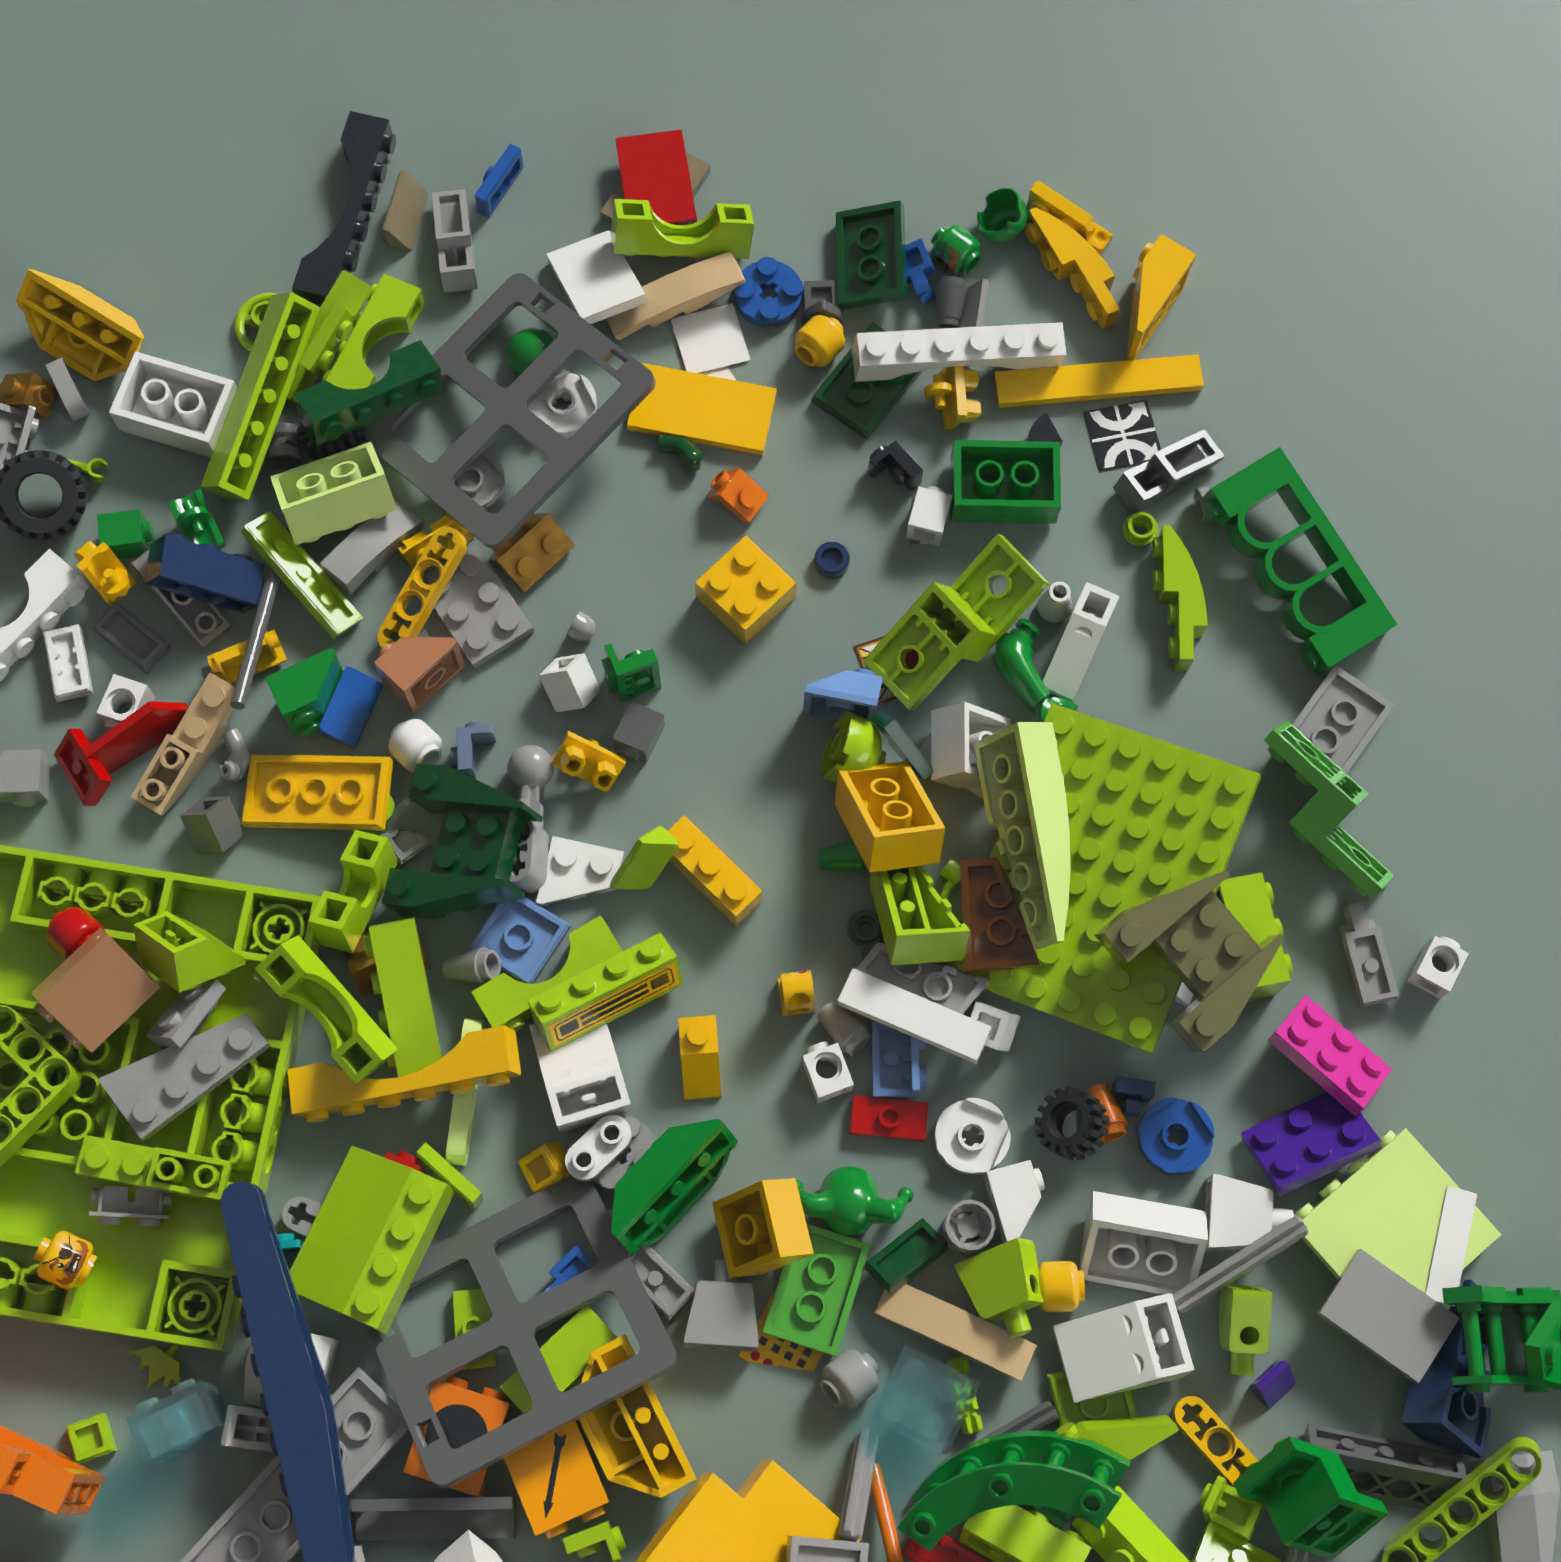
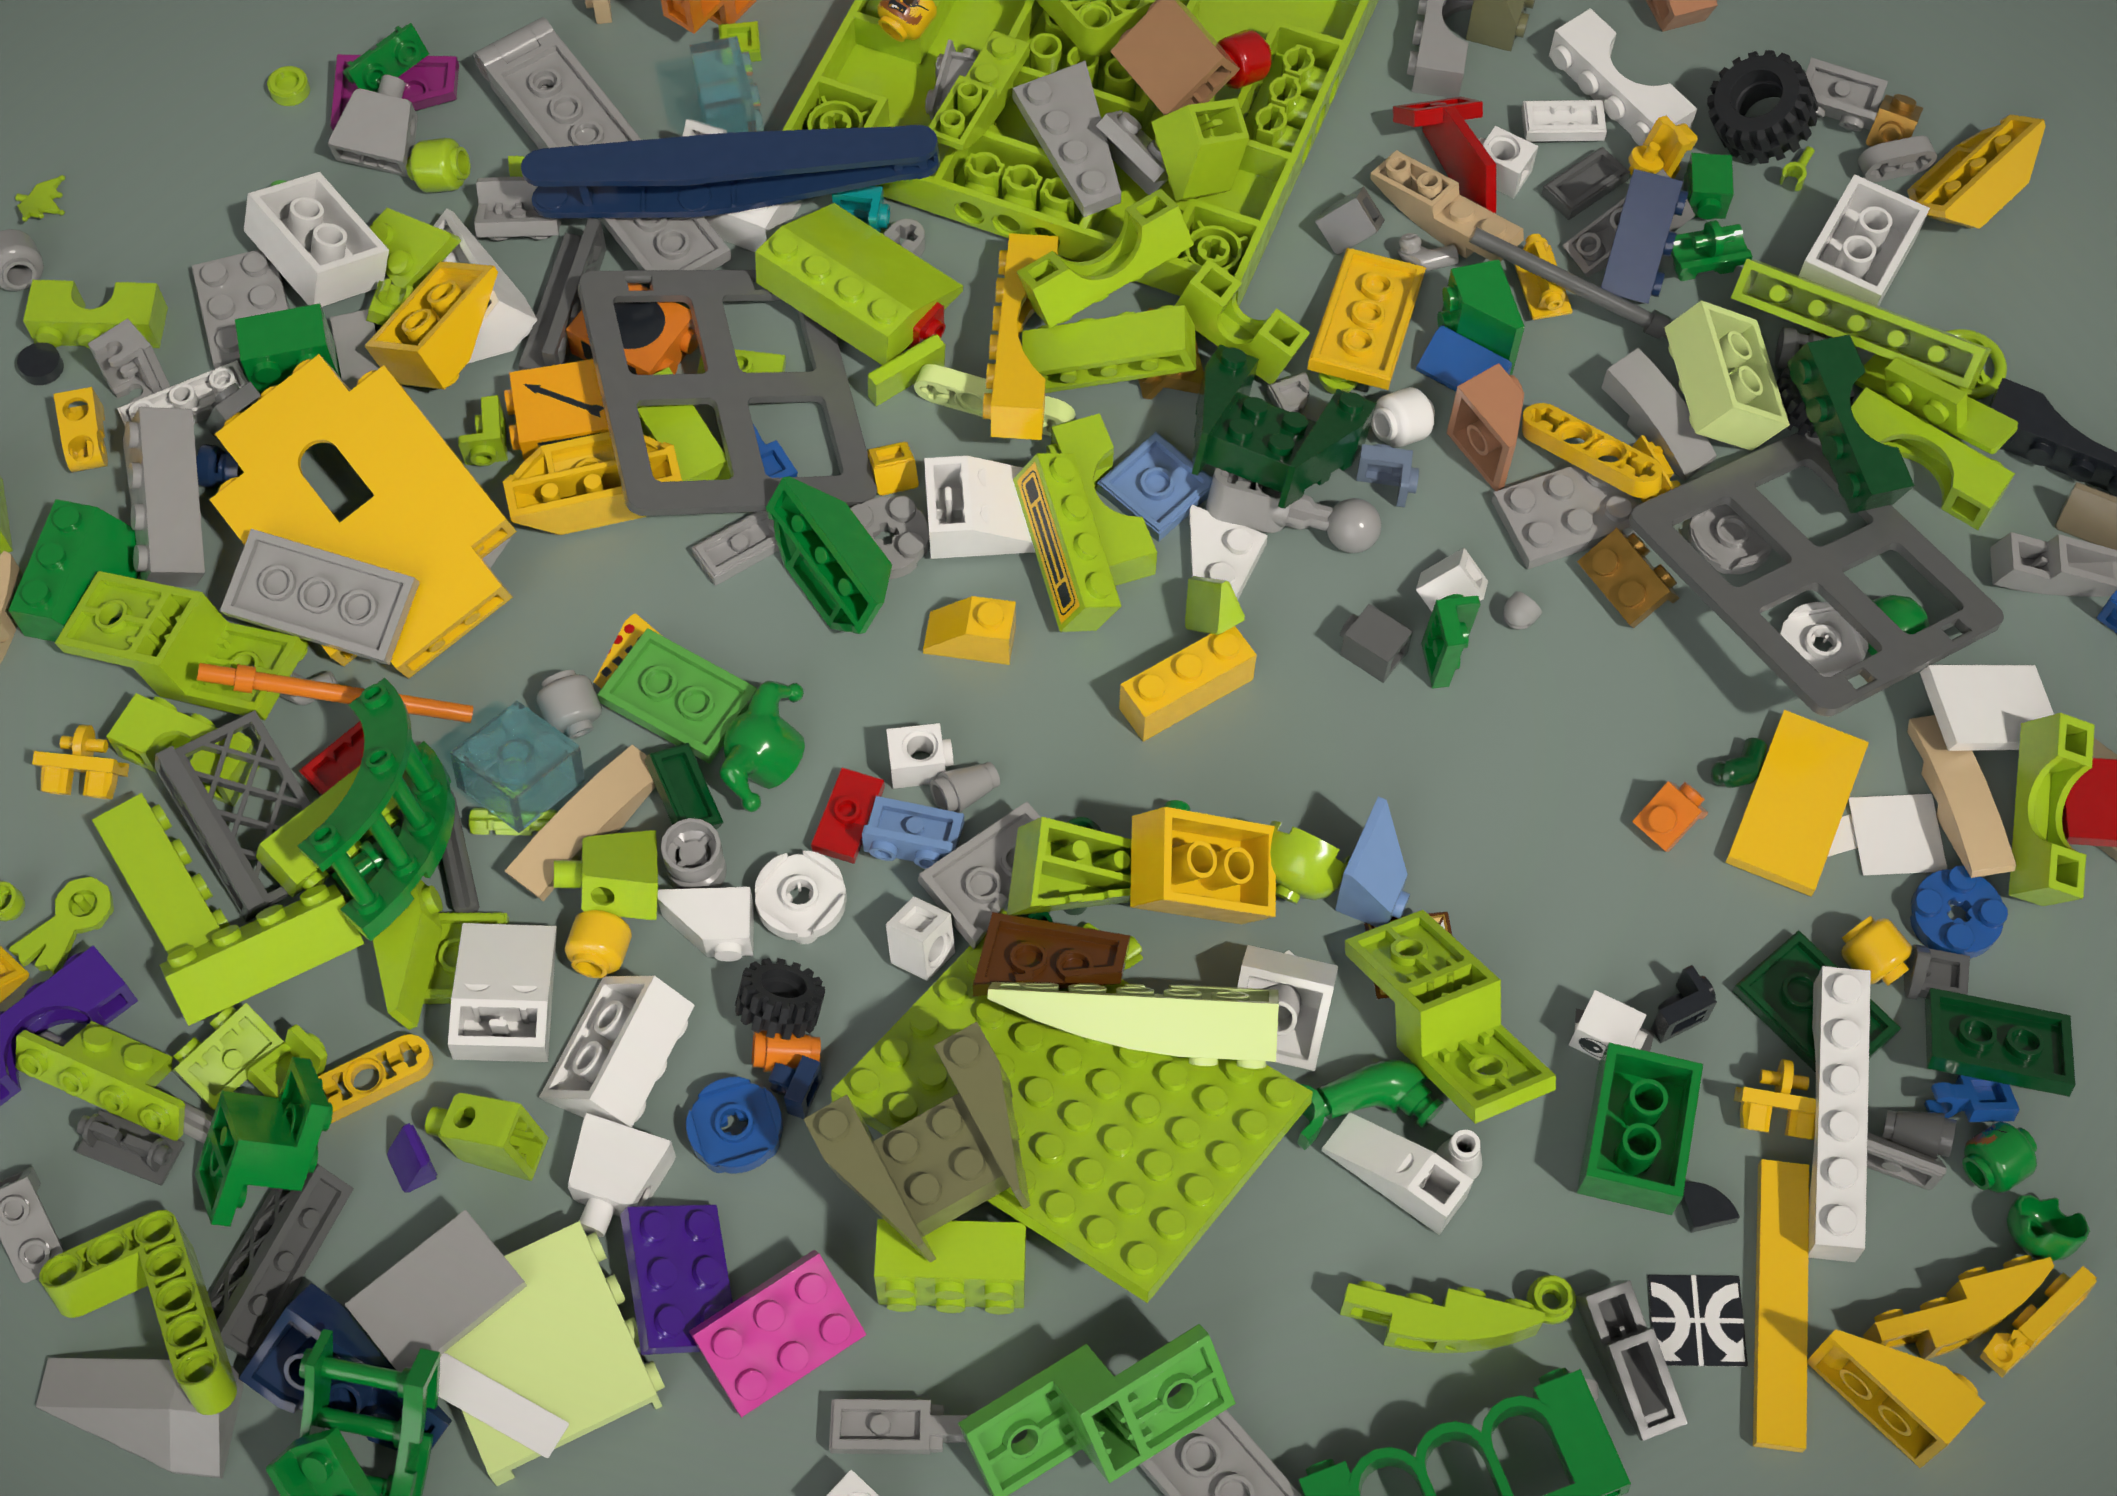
camera: 105 degrees right, 10 degrees down
(160, 1364) = (785, 105): lime piece -> none
(301, 575) = (1641, 329): lime tile -> none
(474, 966) = (1130, 429): light grey cone -> none
(588, 761) = (1348, 578): yellow hips -> none
(598, 1147) = (890, 503): white plate -> none
(722, 1314) = (679, 595): light grey torso -> none
(745, 589) = (1538, 791): yellow brick -> none
(762, 1227) = (754, 639): yellow brick -> none
(796, 993) = (1017, 738): yellow leg -> none
(831, 560) = (1567, 908): dark blue tile -> none
(859, 1485) = (449, 678): light grey axle -> none
(902, 744) = (1296, 913): dark green tile -> none
(914, 1015) = (950, 842): white tile -> none
(1240, 1264) = (554, 1142): light grey axle -> none

